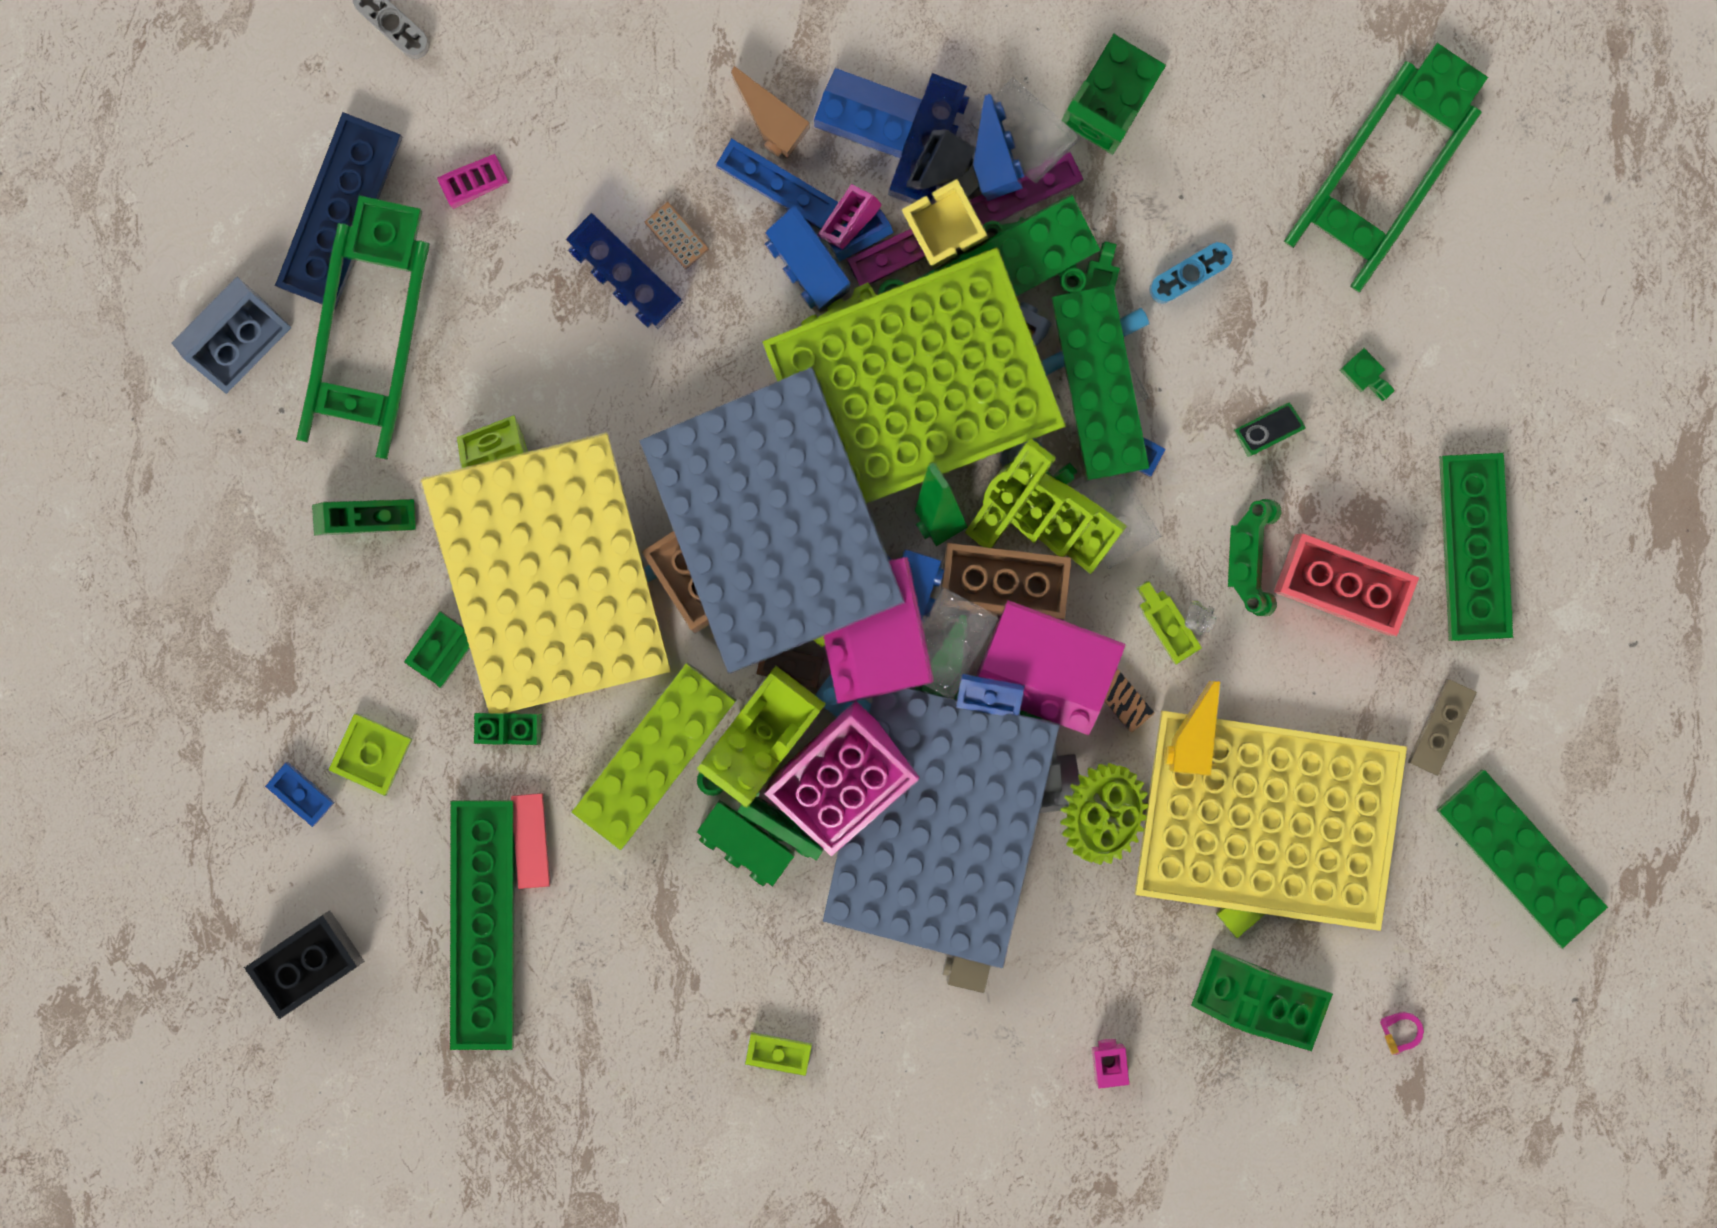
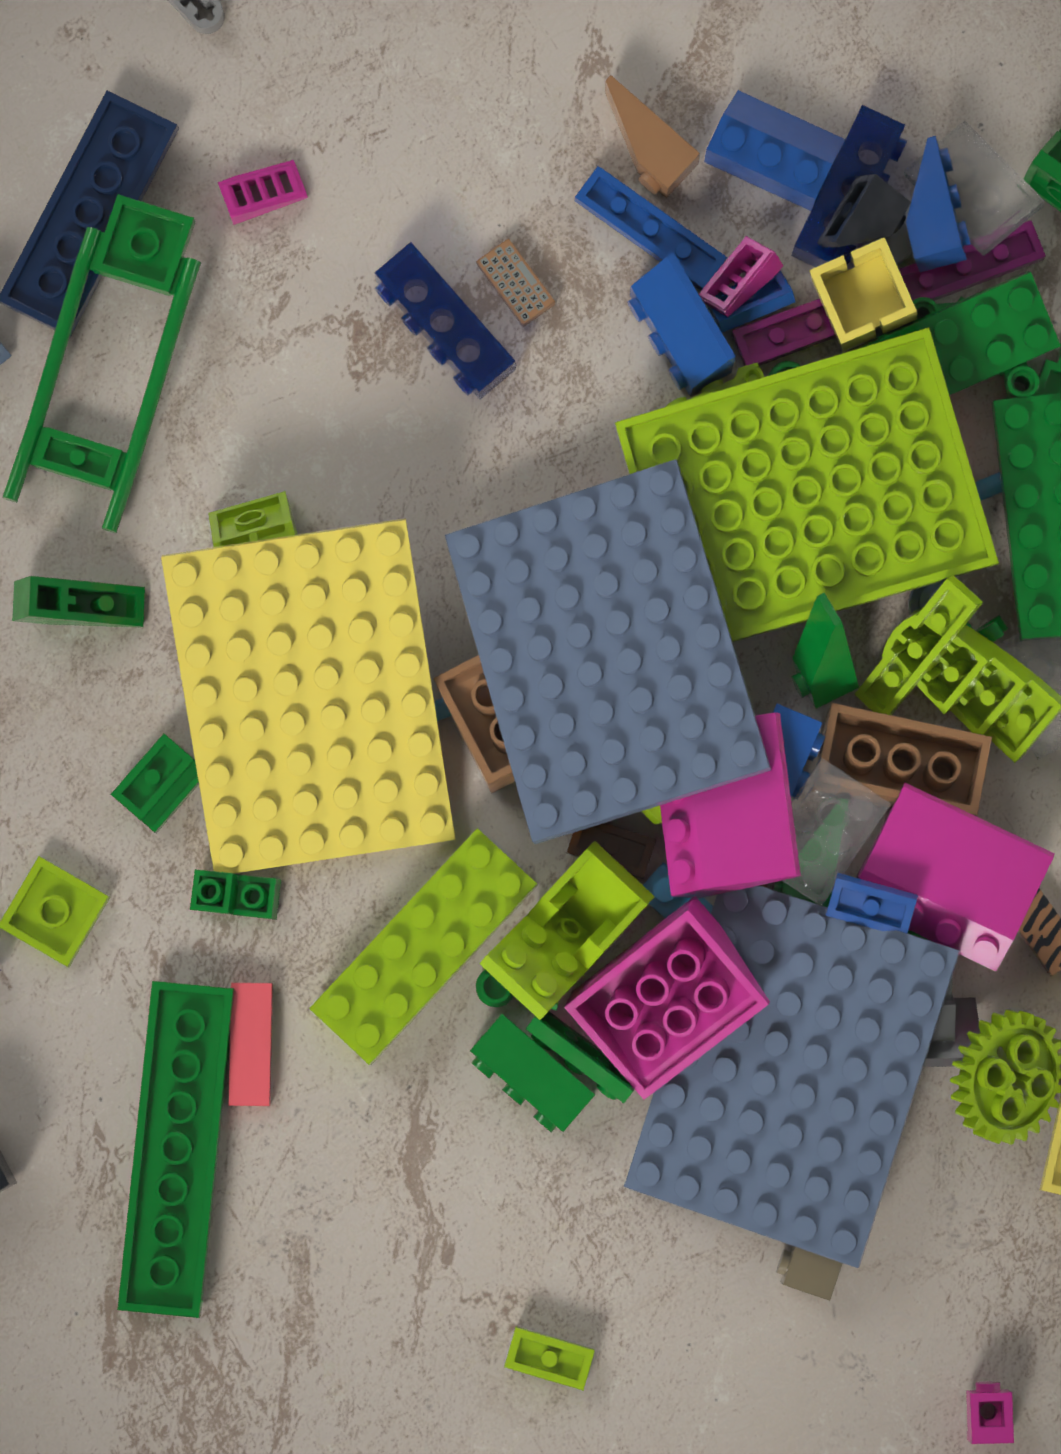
camera: 10 degrees right, 5 degrees down
(1035, 322) = (972, 433): sand blue plate -> none

